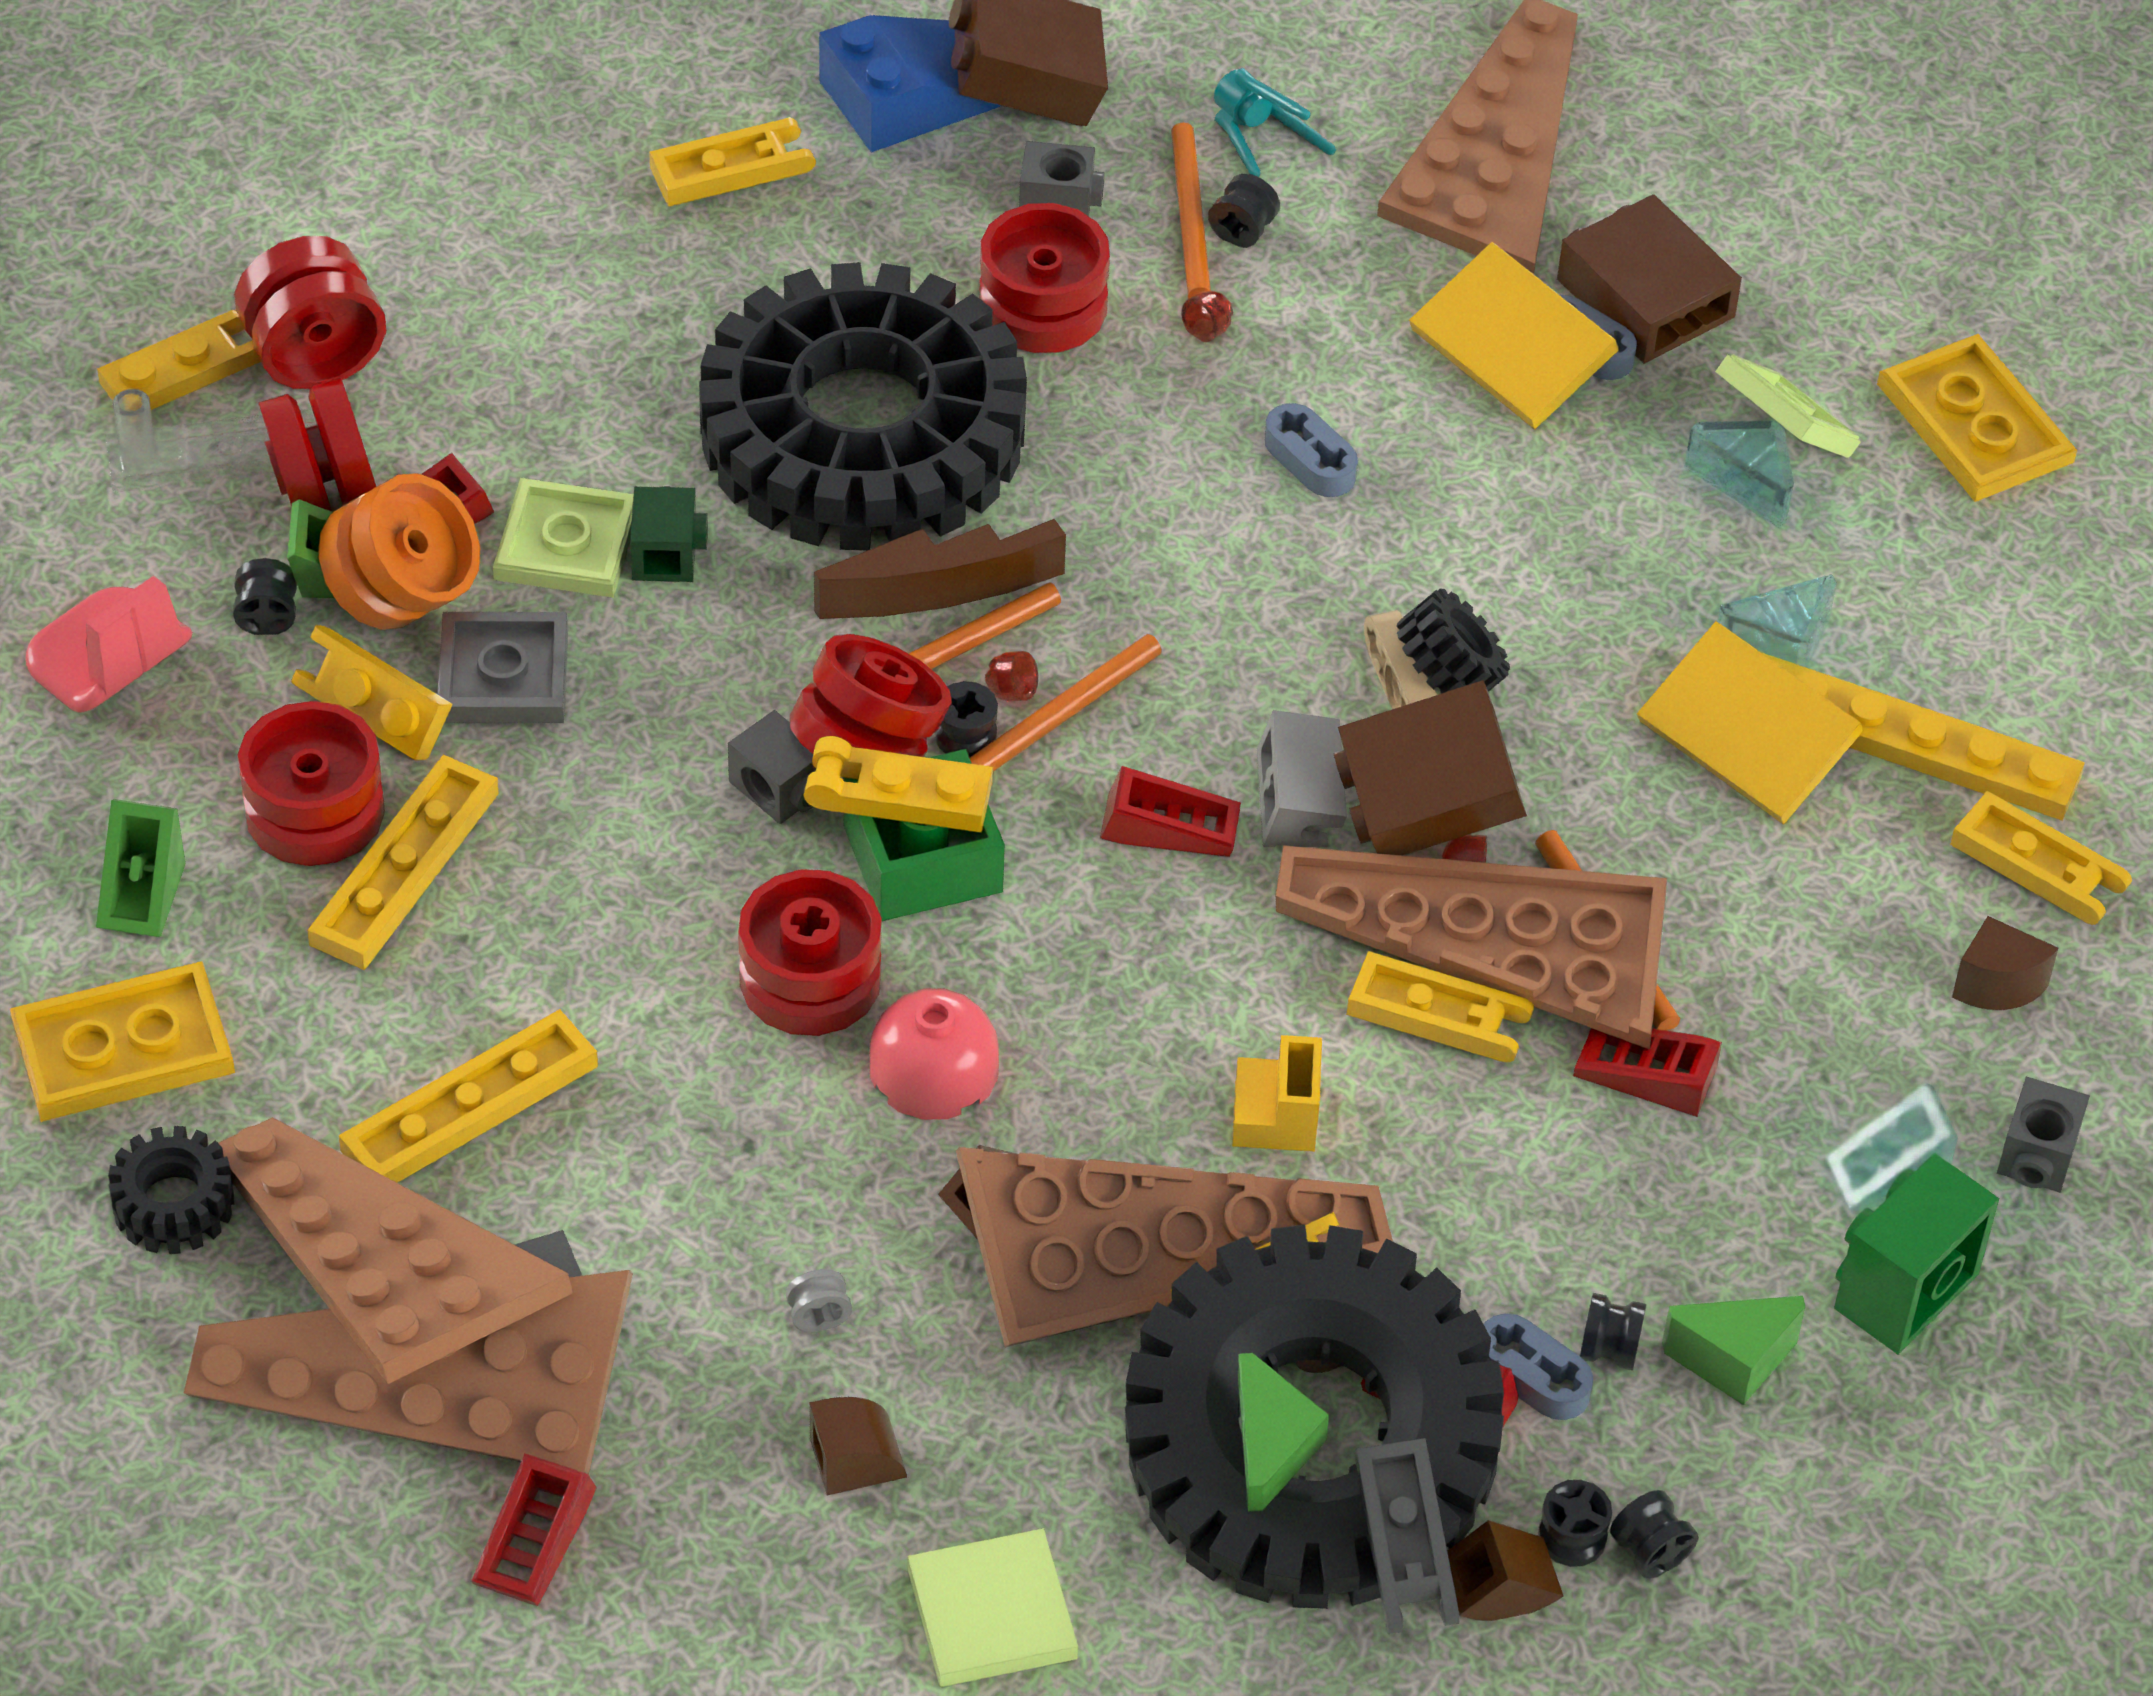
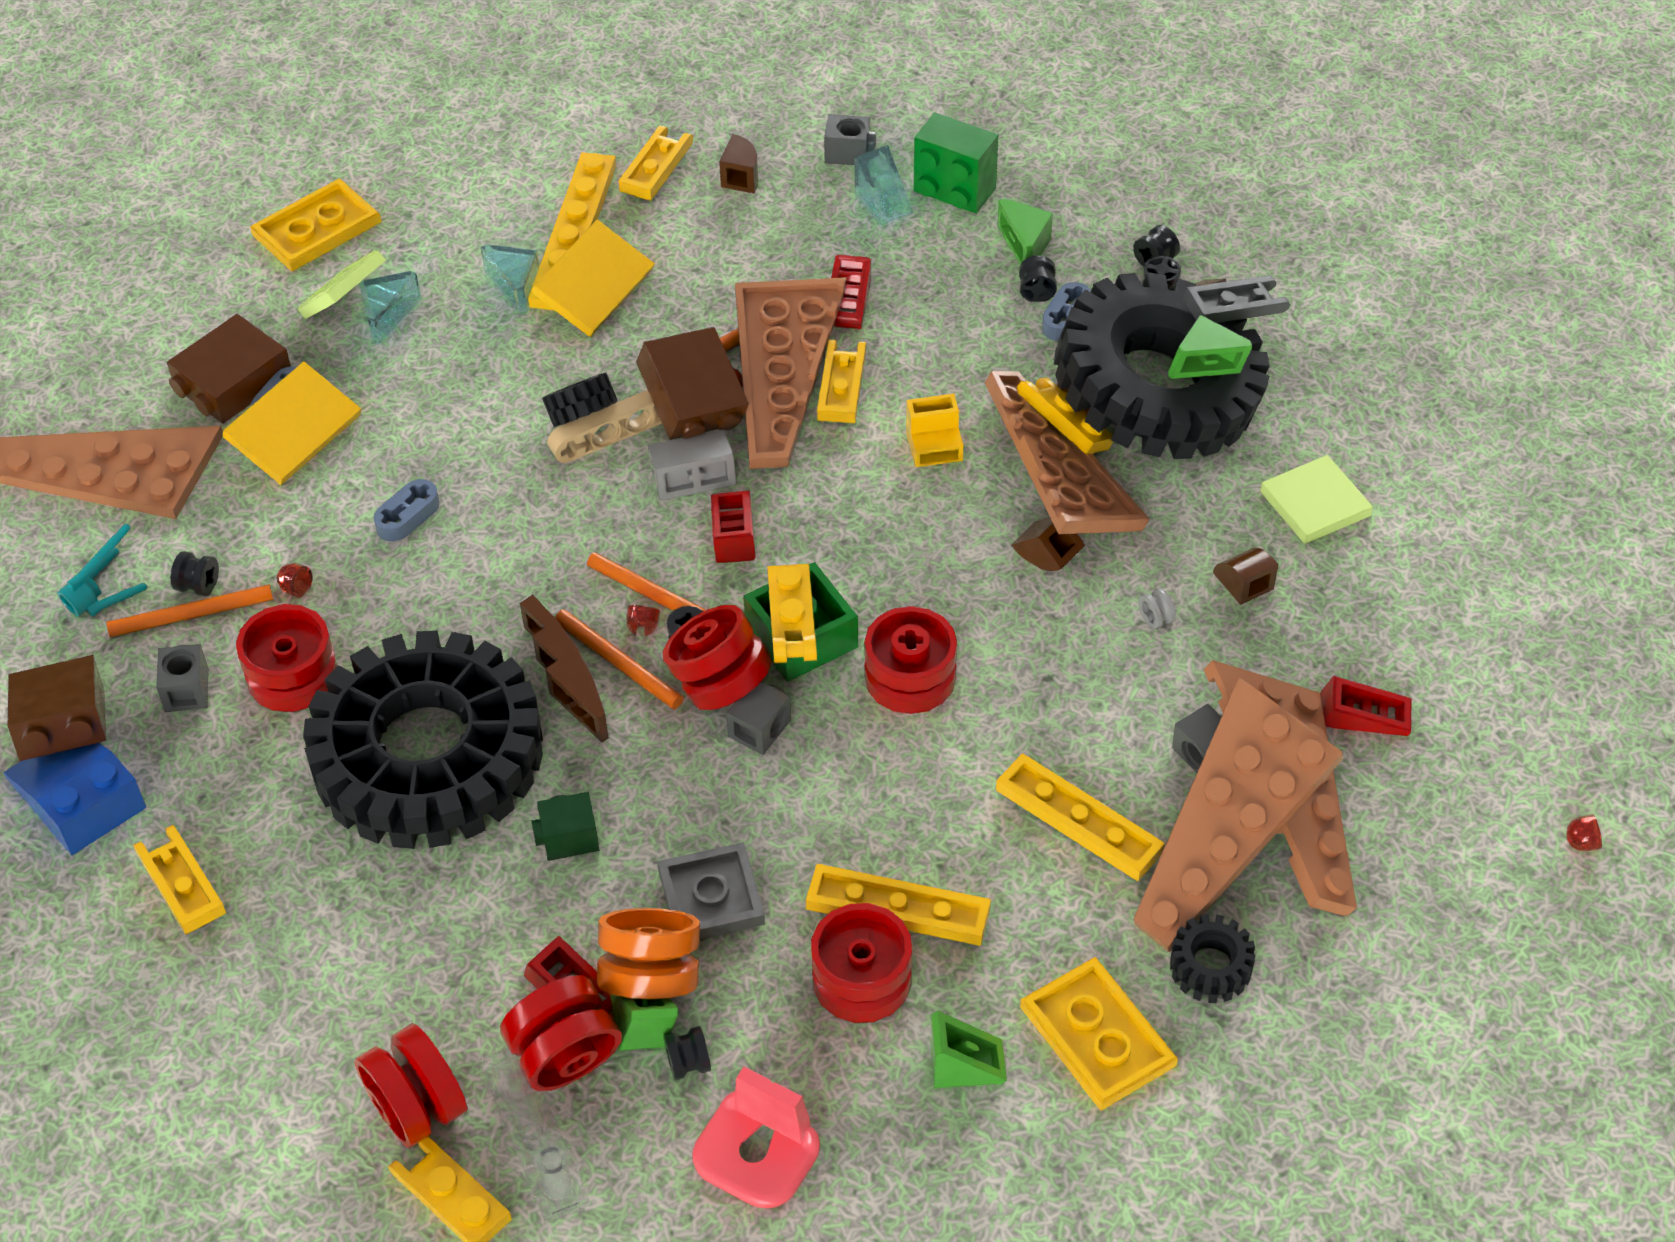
camera: 100 degrees left, 0 degrees up
(387, 699) = (760, 959): yellow hinge -> none
(565, 538) = (571, 892): yellowish green tile -> none
(934, 1054) = (959, 591): coral cylinder -> none

